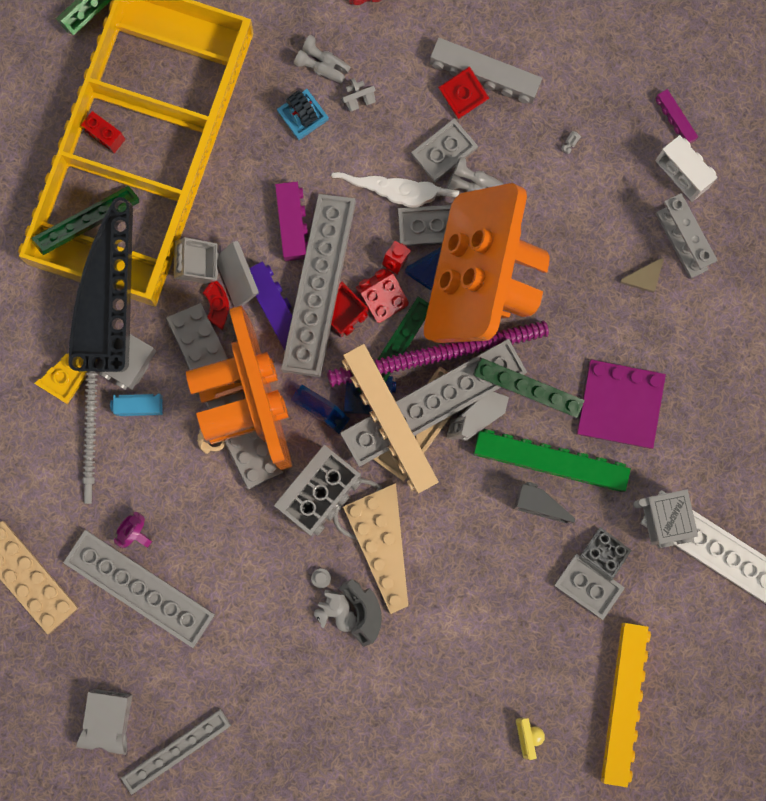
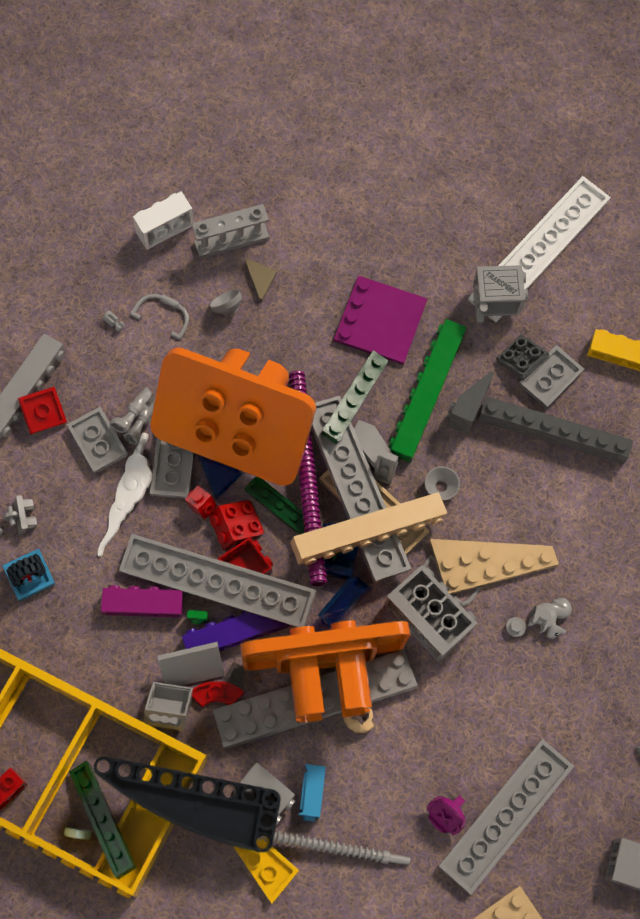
camera: 85 degrees left, 10 degrees down
(75, 203) = (77, 833): none -> light aqua tile
(284, 274) = (197, 617): none -> green tile
(367, 609) = (558, 584): dark grey arch -> none
(461, 480) = (445, 475): none -> light grey piece
(530, 596) = (555, 430): none -> dark grey brick
(602, 191) = (169, 301): none -> light grey piece
(609, 246) = (227, 302): none -> light grey piece
(676, 116) = (108, 222): magenta piece -> none

